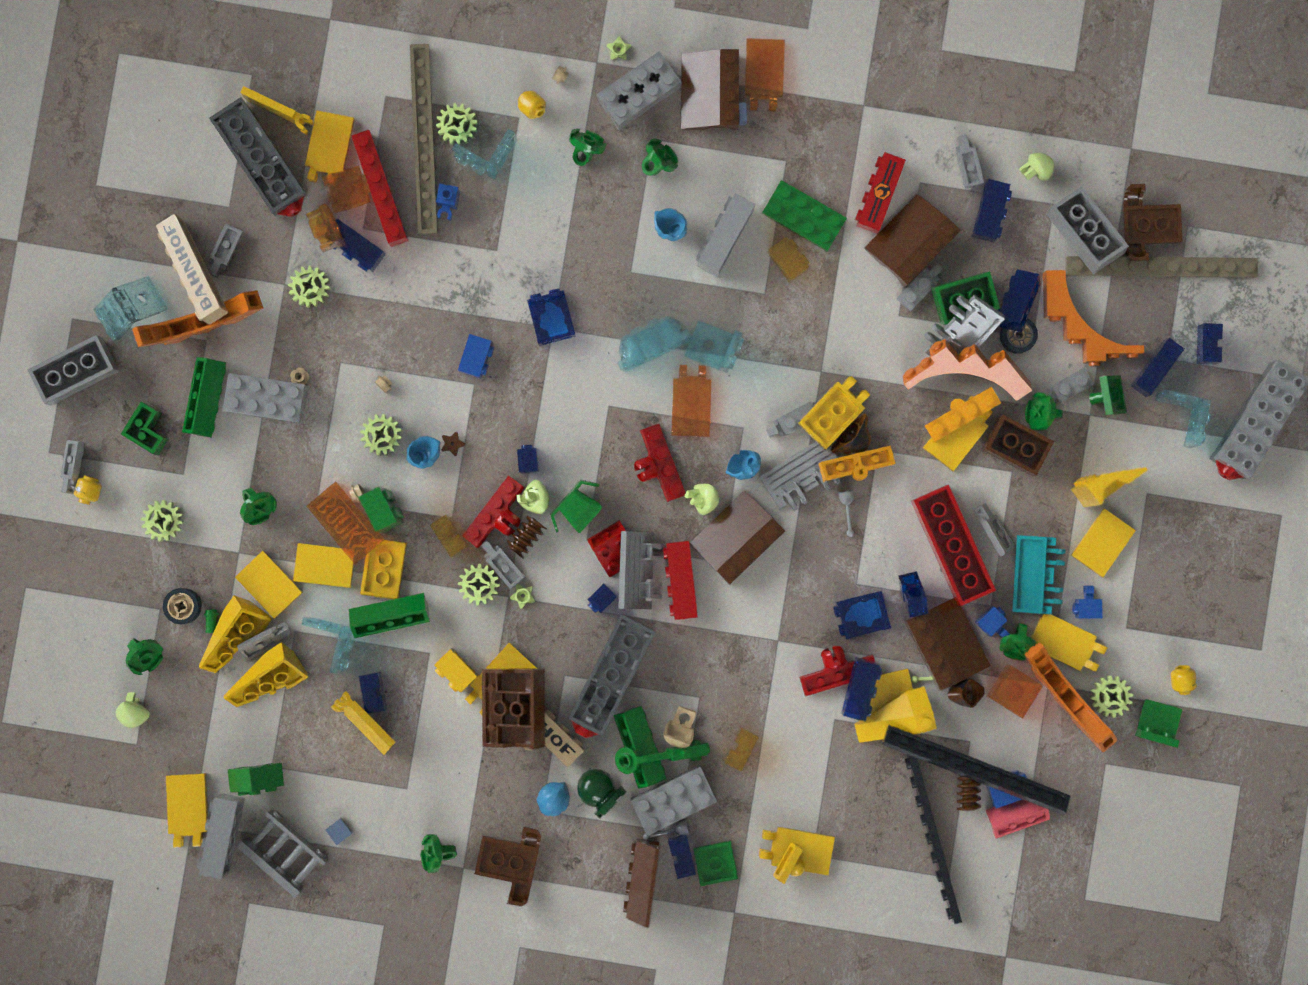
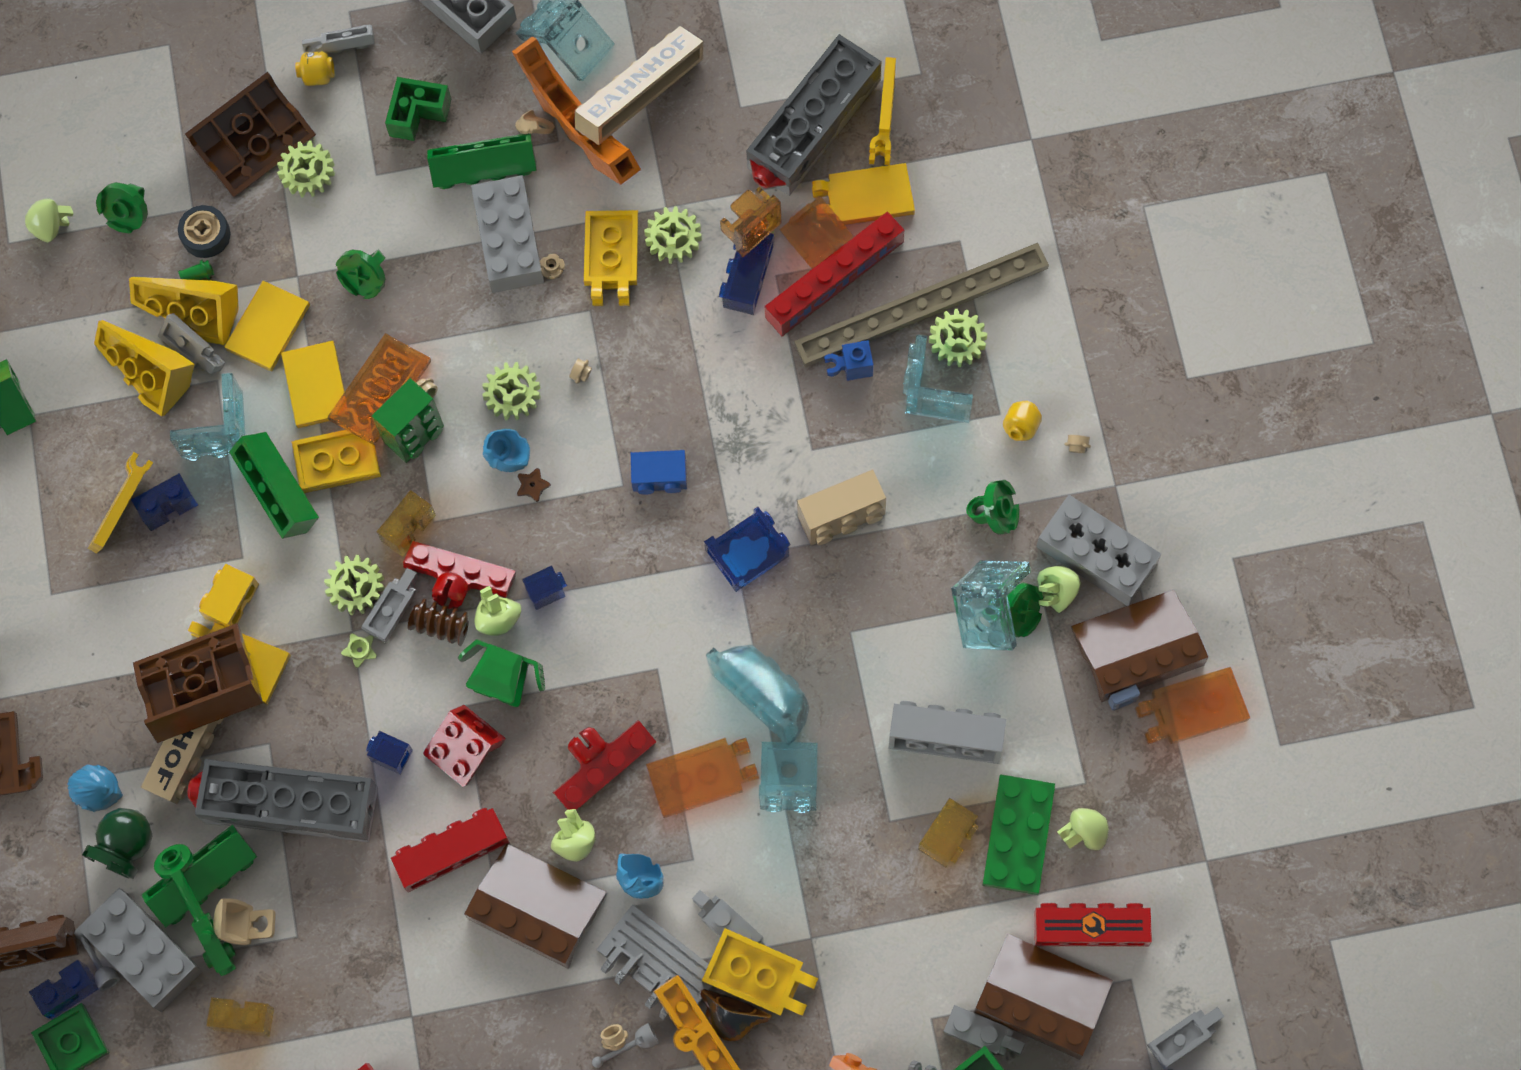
camera: 75 degrees right, 15 degrees down
(119, 552) = (249, 134): none -> reddish brown piece
(193, 355) = (530, 124): none -> tan piece
(224, 249) = (682, 119): light grey hinge -> none
(305, 333) = (611, 253): none -> yellow tile
(550, 245) = (842, 508): none -> tan brick
(618, 44) = (1148, 500): yellowish green plate -> none
(635, 570) = (441, 780): light grey hinge -> none
(648, 173) = (984, 595): none -> clear light blue bracket
(654, 126) = (1058, 587): none -> yellowish green piece
(670, 224) = (933, 655): dark azure hair -> none
(816, 171) = (1085, 826): none -> yellowish green piece
(839, 517) = (614, 1037): none -> tan plate

